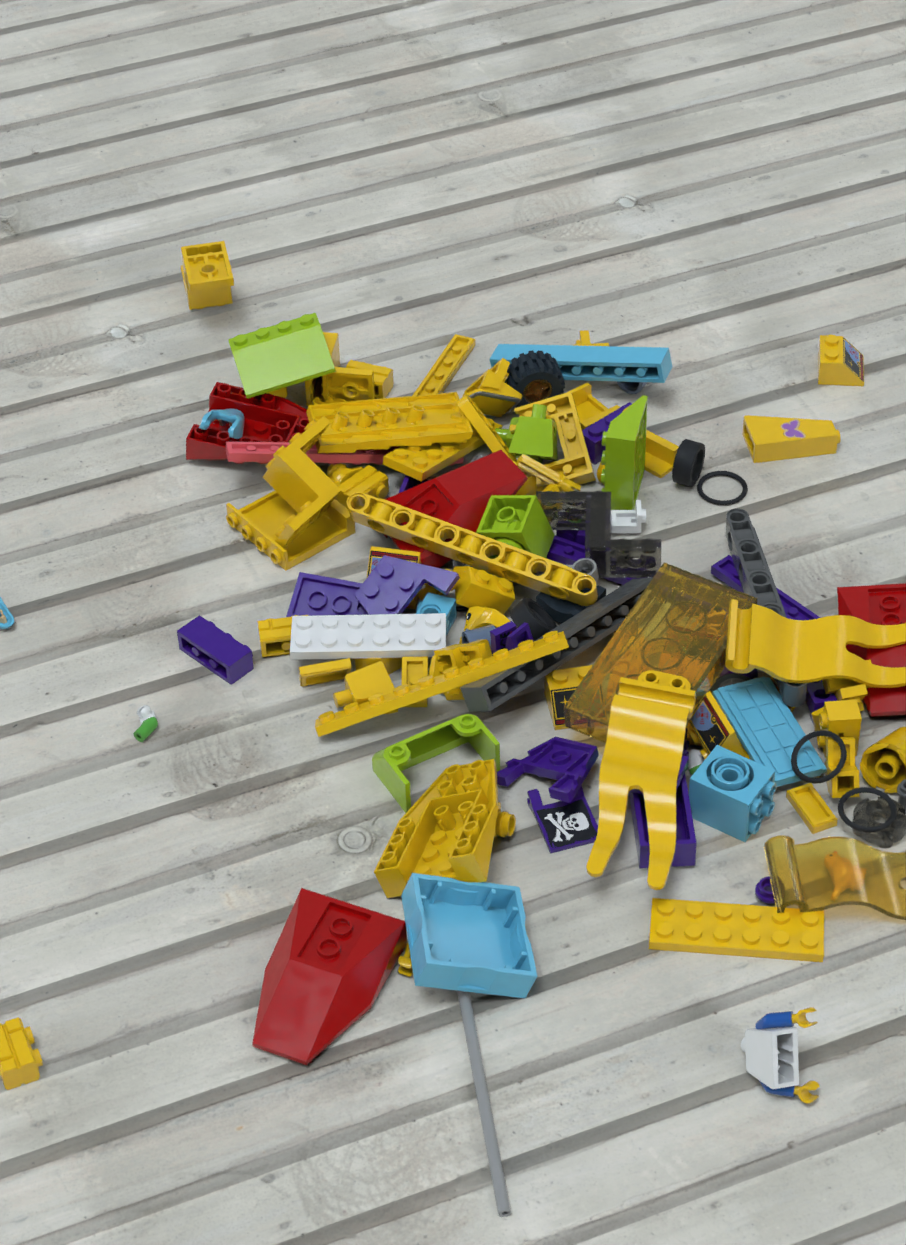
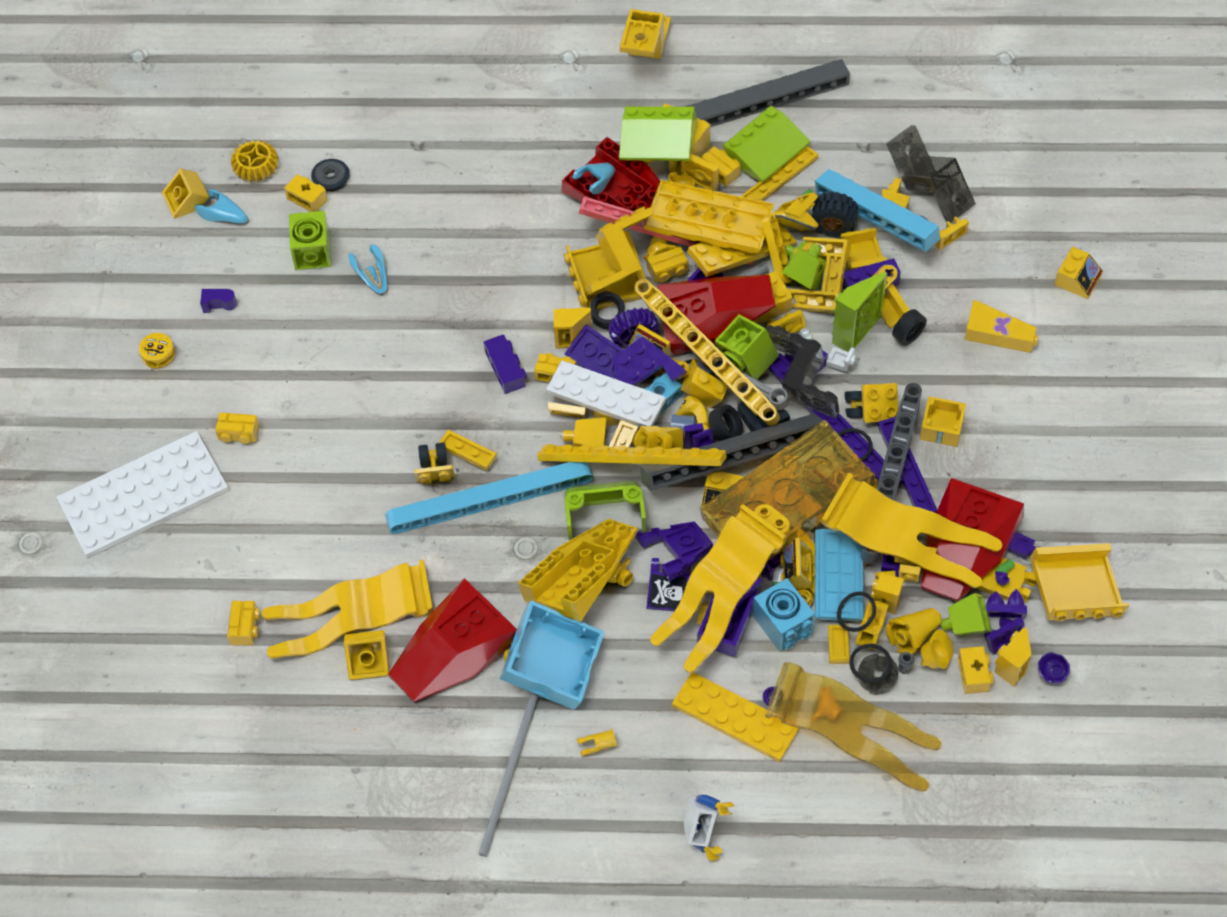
camera: 25 degrees right, 15 degrees up
(148, 723) = (436, 405): bright green arm -> none
(173, 974) = (362, 605): none -> yellow flag
(185, 784) = (441, 473): none -> yellow plate
(211, 1029) = (366, 654): none -> yellow slope
(218, 755) = (468, 450): none -> yellow plate
(272, 798) = (488, 496): none -> medium azure beam
(277, 580) = (569, 324): none -> yellow slope
(317, 540) = (605, 296): none -> black tyre
(353, 555) = (624, 325): none -> dark purple gear
(395, 293) = (773, 93): none -> dark grey brick
(410, 343) = (766, 144): none -> lime slope
(546, 474) = (800, 303): yellow axle -> none
(583, 1018) = (601, 740): none -> yellow hinge
(609, 318) = (930, 173): none -> clear smoke bracket
(628, 831) = (703, 608): none -> yellow tile
(680, 362) = (952, 232): none -> yellow plate
(700, 544) = (873, 402): none -> yellow plate
(722, 502) = (932, 340): black tyre -> none
(787, 542) = (942, 421): none -> yellow container

